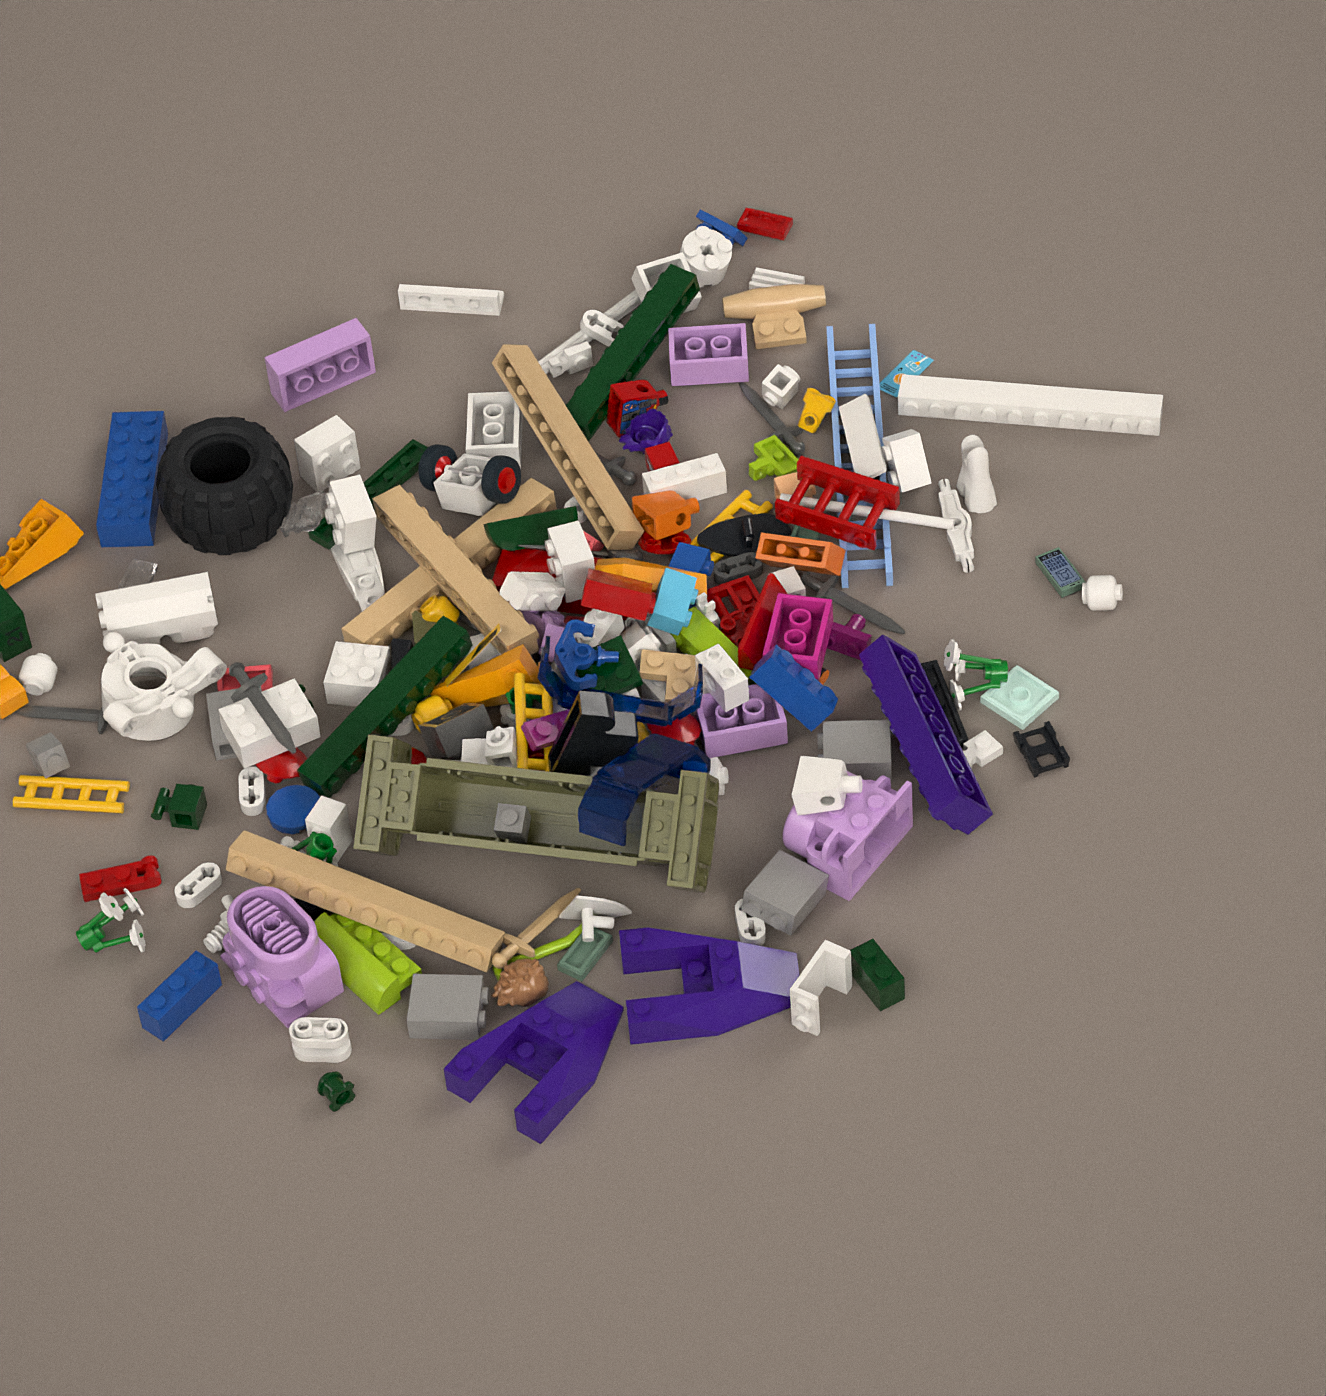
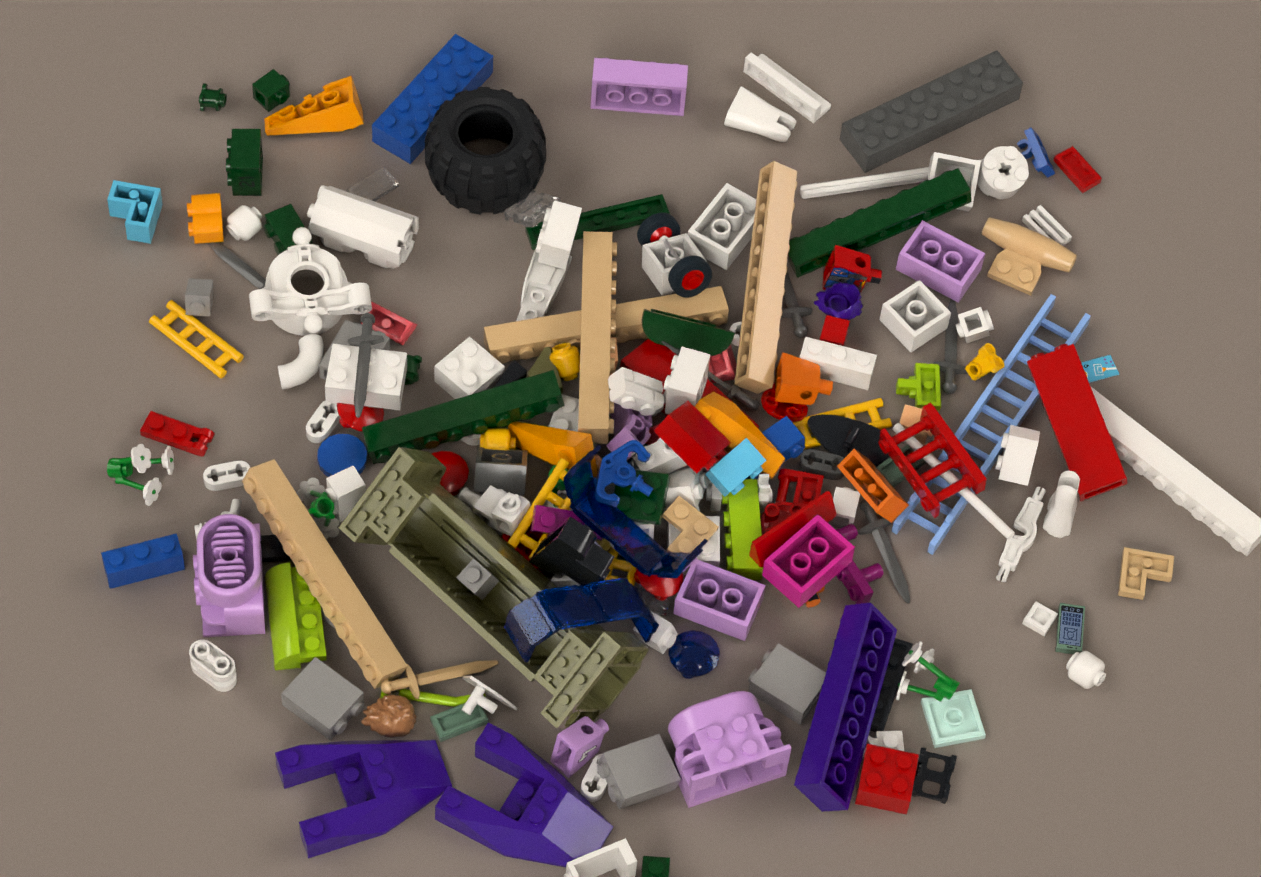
camera: 25 degrees right, 10 degrees up
(82, 658) = (280, 227): none -> dark green brick
(184, 807) = (263, 404): dark green brick -> none
(196, 753) = (305, 365): none -> white cylinder
(327, 453) = (586, 168): white brick -> none
(335, 1090) = (193, 714): dark green brick -> none
(444, 334) = (757, 116): none -> white piece
(472, 655) = (551, 417): yellow sticker -> none
(574, 360) = (836, 199): white plate -> none
(598, 246) = (930, 111): none -> dark grey brick
(603, 327) = (881, 180): white beam -> none
(712, 892) = (578, 744): none -> lavender torso
(722, 408) = (915, 316): none -> white brick
(723, 678) = (722, 559): white brick -> none
(752, 778) = (694, 654): none -> clear blue dish
(794, 687) = (772, 602): blue brick -> none
(822, 785) = (715, 708): white torso -> none
(862, 437) = (996, 417): white panel -> none
(931, 402) = (1076, 420): none -> red brick
(1006, 772) = (886, 779): none -> red brick
(1027, 579) = (1040, 618): none -> white tile
(1079, 493) = (1138, 566): none -> tan plate

